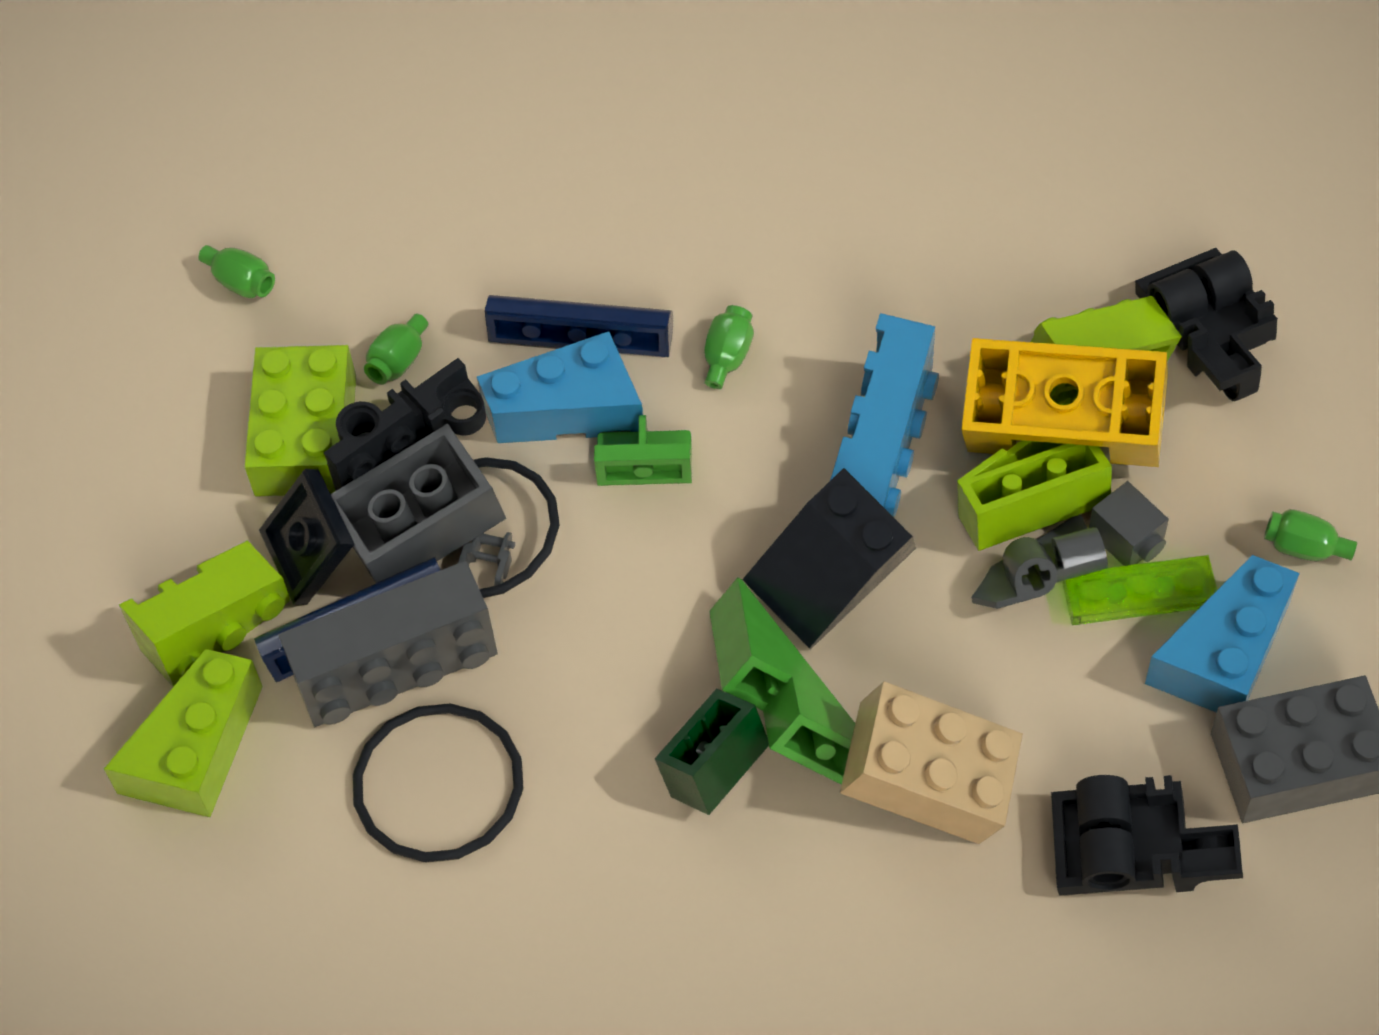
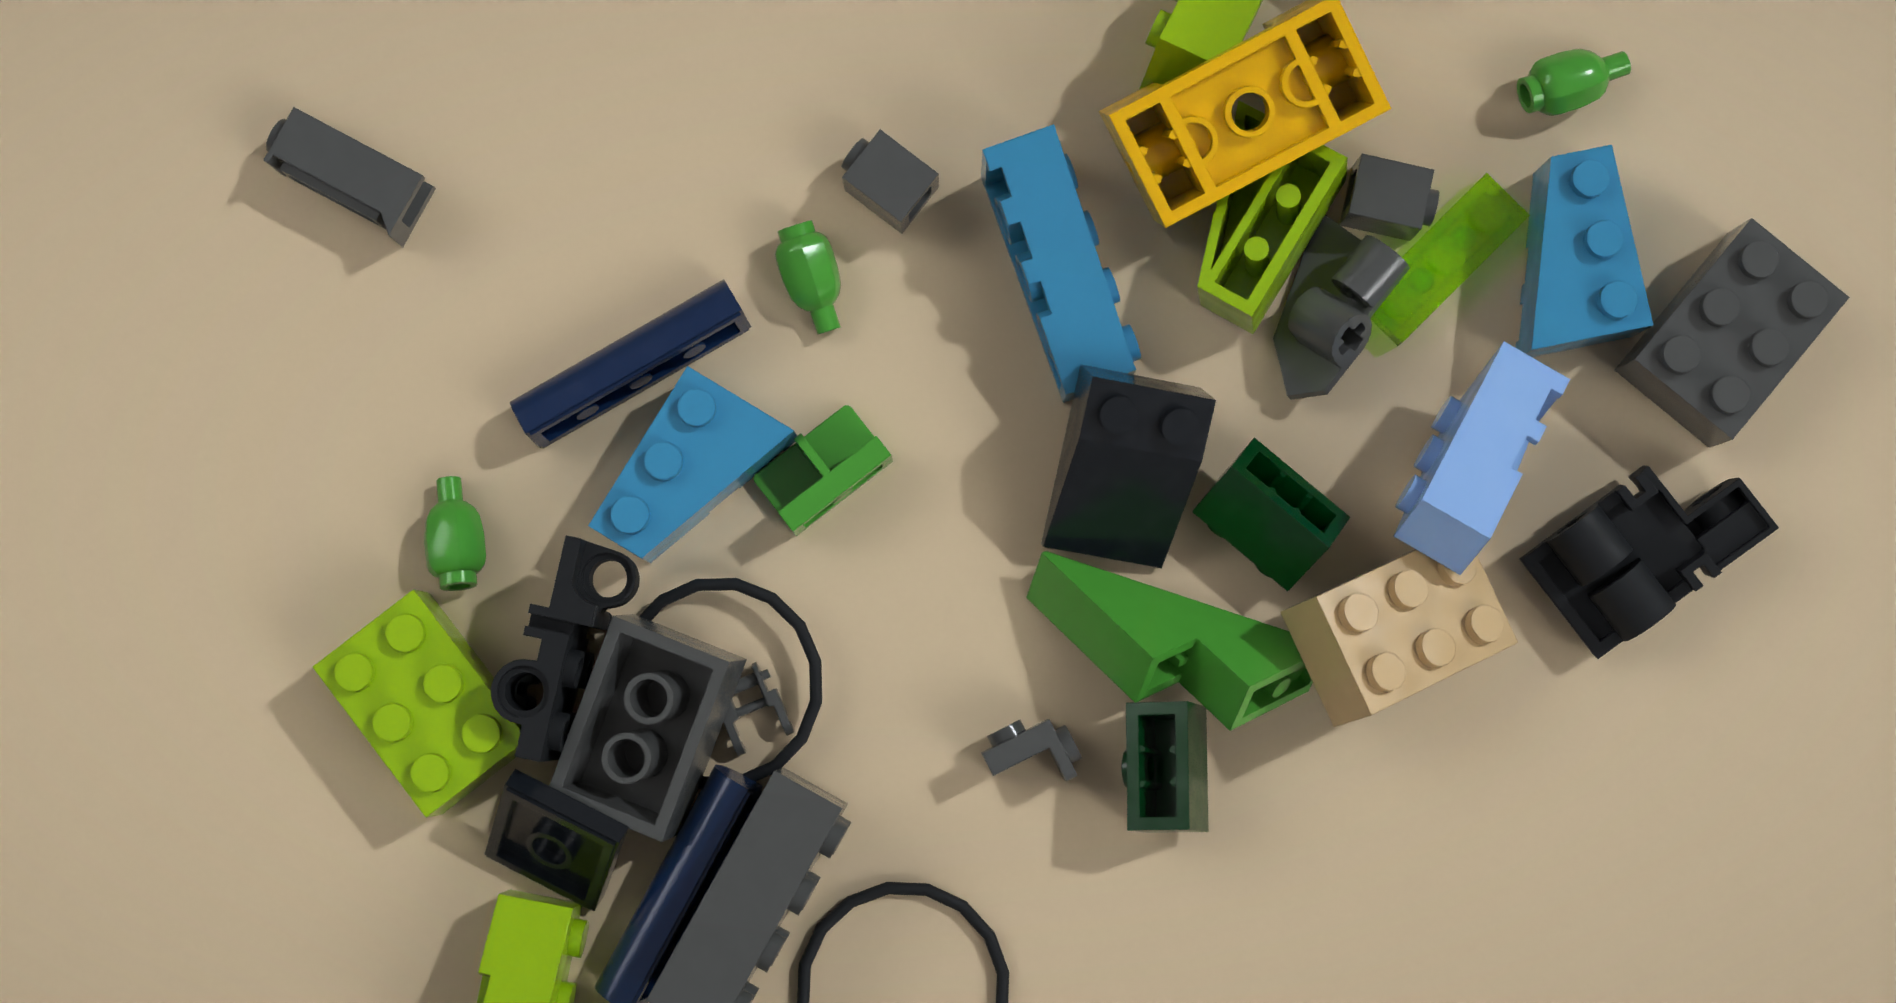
camera: 40 degrees left, 25 degrees up
(239, 271) = (195, 569): bright green plant -> none
(506, 130) = (348, 173): none -> dark grey window
(635, 684) = (1015, 744): none -> dark grey bracket
(817, 324) = (888, 179): none -> dark grey brick
(903, 644) = (1271, 515): none -> dark green brick
(1063, 689) = (1476, 458): none -> light blue wedge

